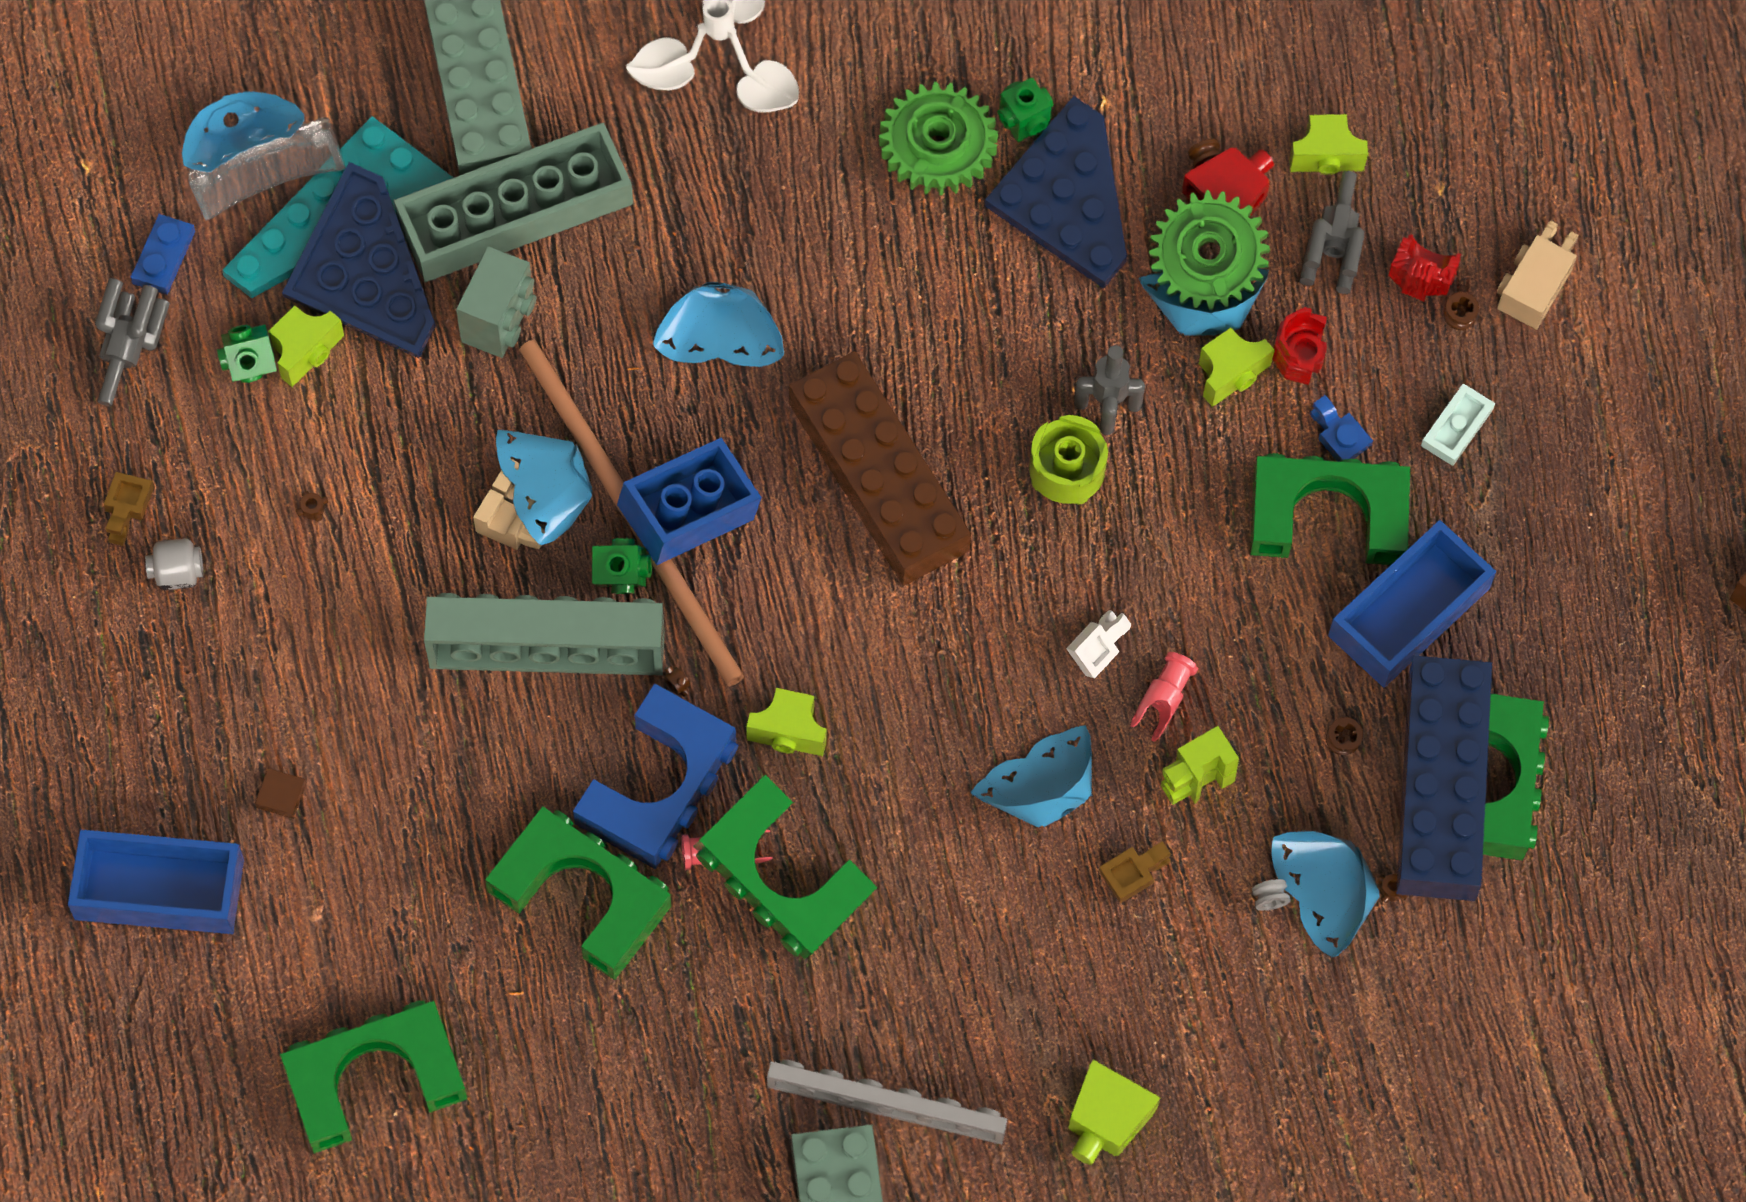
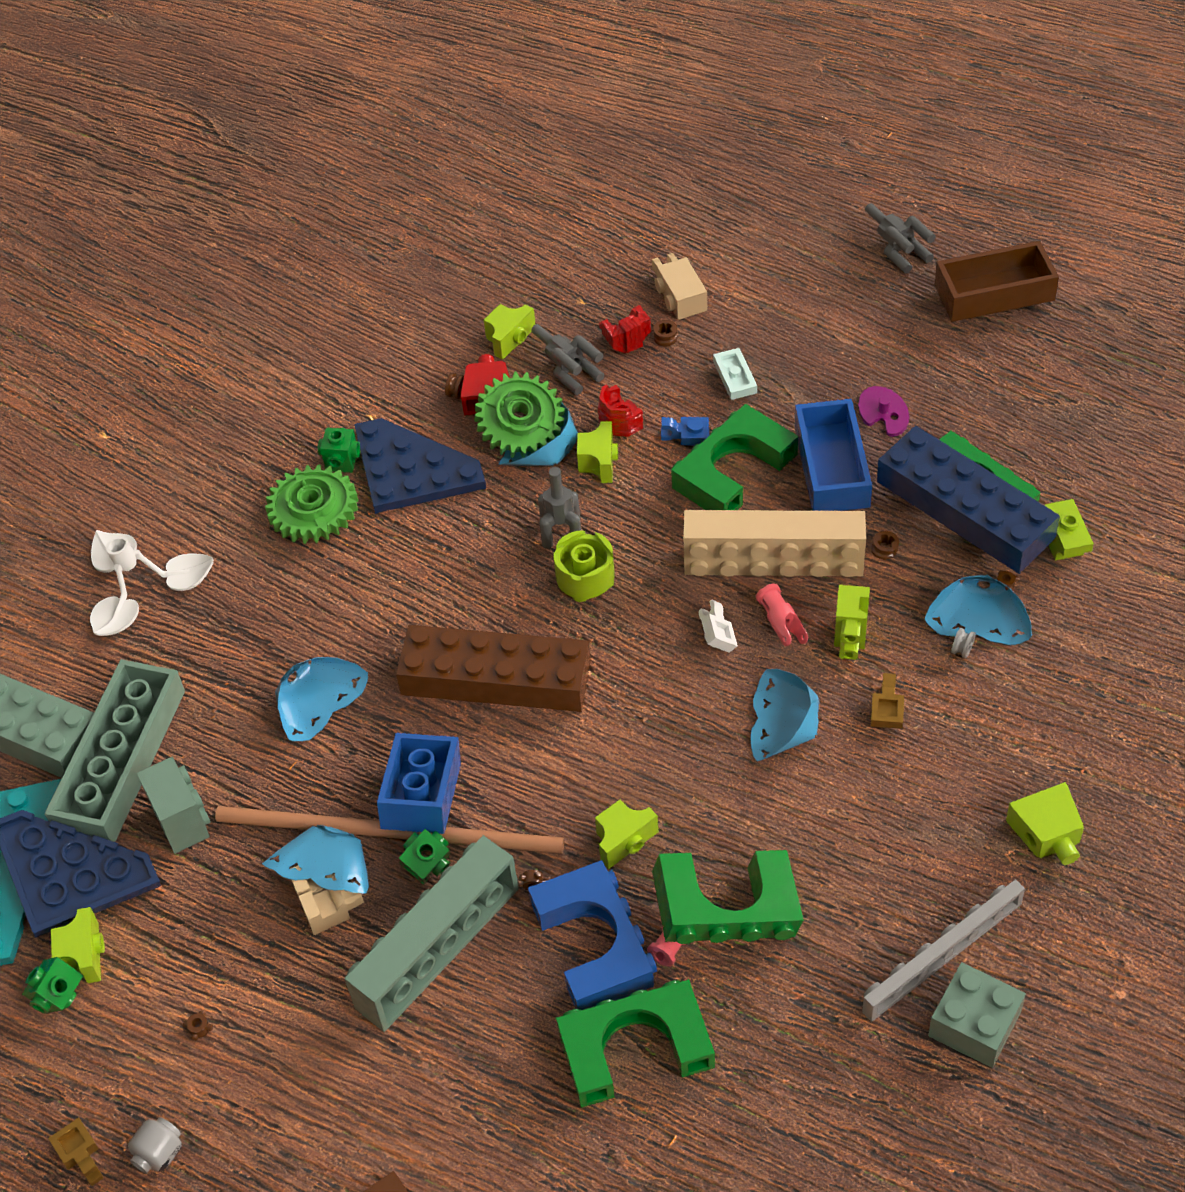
camera: 45 degrees left, 15 degrees down
(1240, 626) = (774, 543): none -> tan brick
(1500, 906) = (1072, 534): none -> lime brick
(1542, 602) = (880, 404): none -> magenta piece

